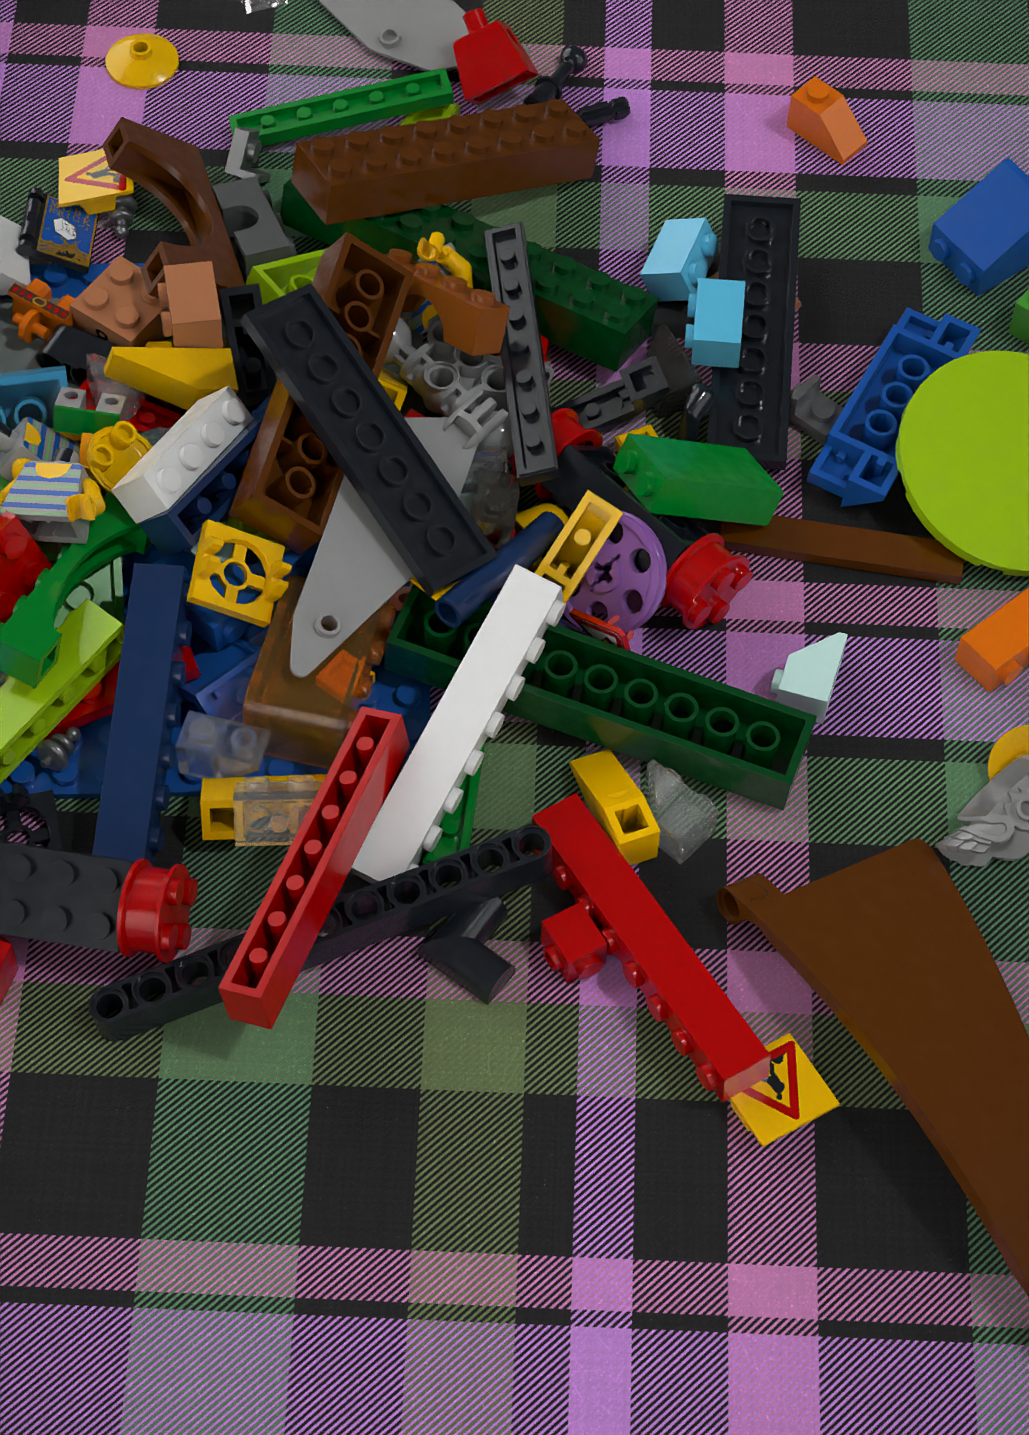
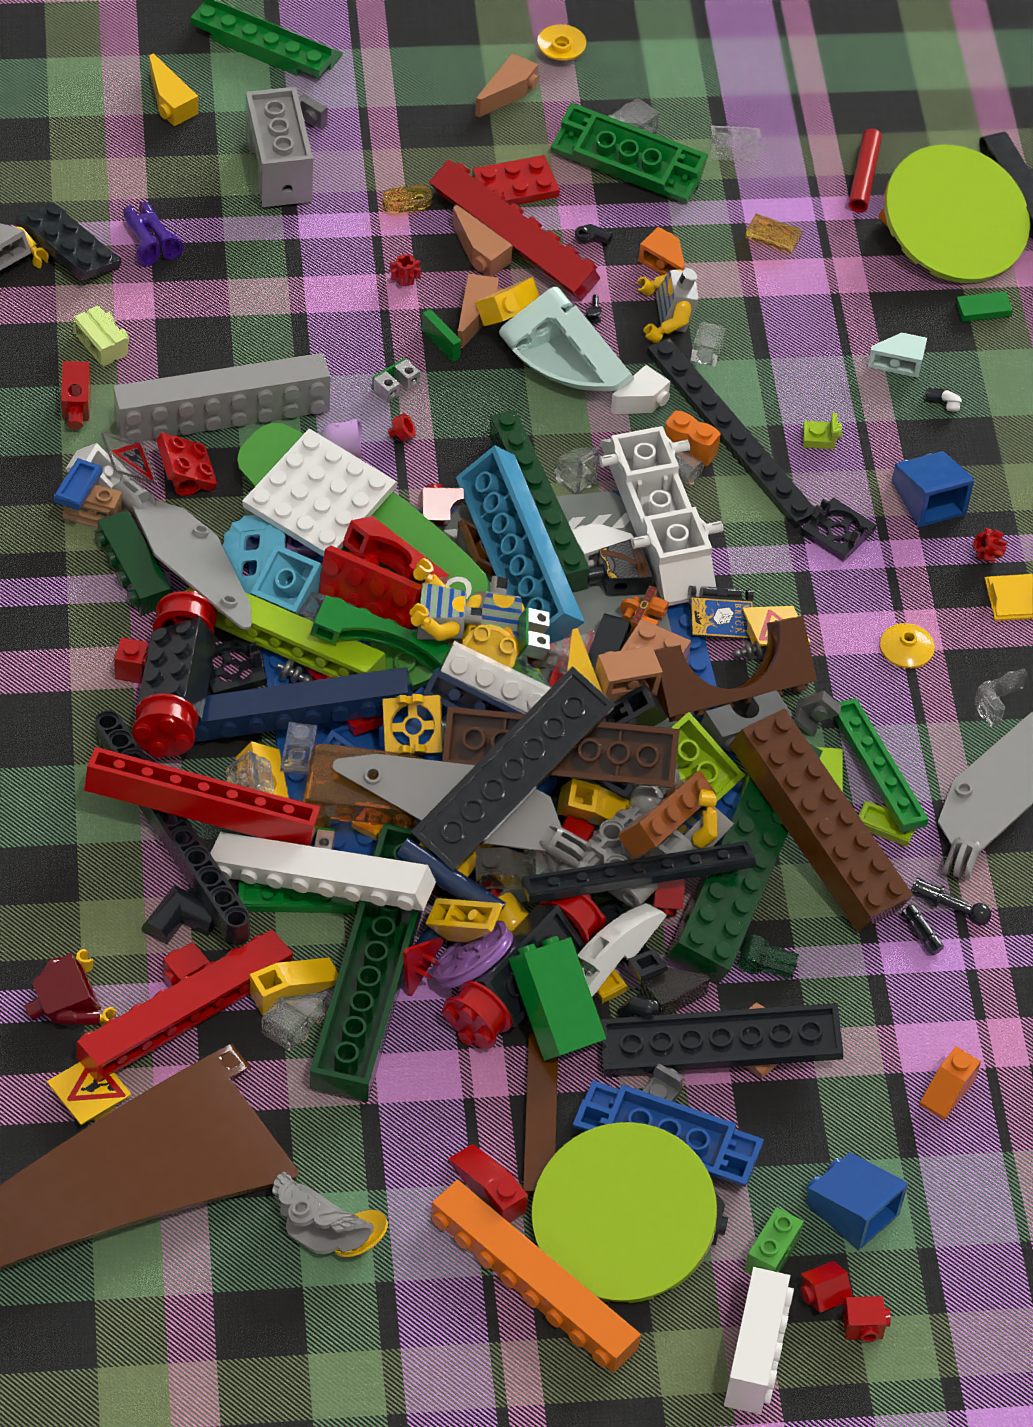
camera: 80 degrees right, 5 degrees down
(490, 58) = (942, 844): red torso -> none
(599, 396) = (617, 940): none -> white slope
(607, 1105) = (67, 993): none -> dark red torso
(629, 259) = (759, 956): none -> clear green piece
(679, 258) = (778, 986): medium azure brick -> none
(717, 322) = (706, 1003): medium azure brick -> none
(810, 676) = (417, 1096): light aqua slope -> none
(949, 610) = (490, 1182): none -> red slope

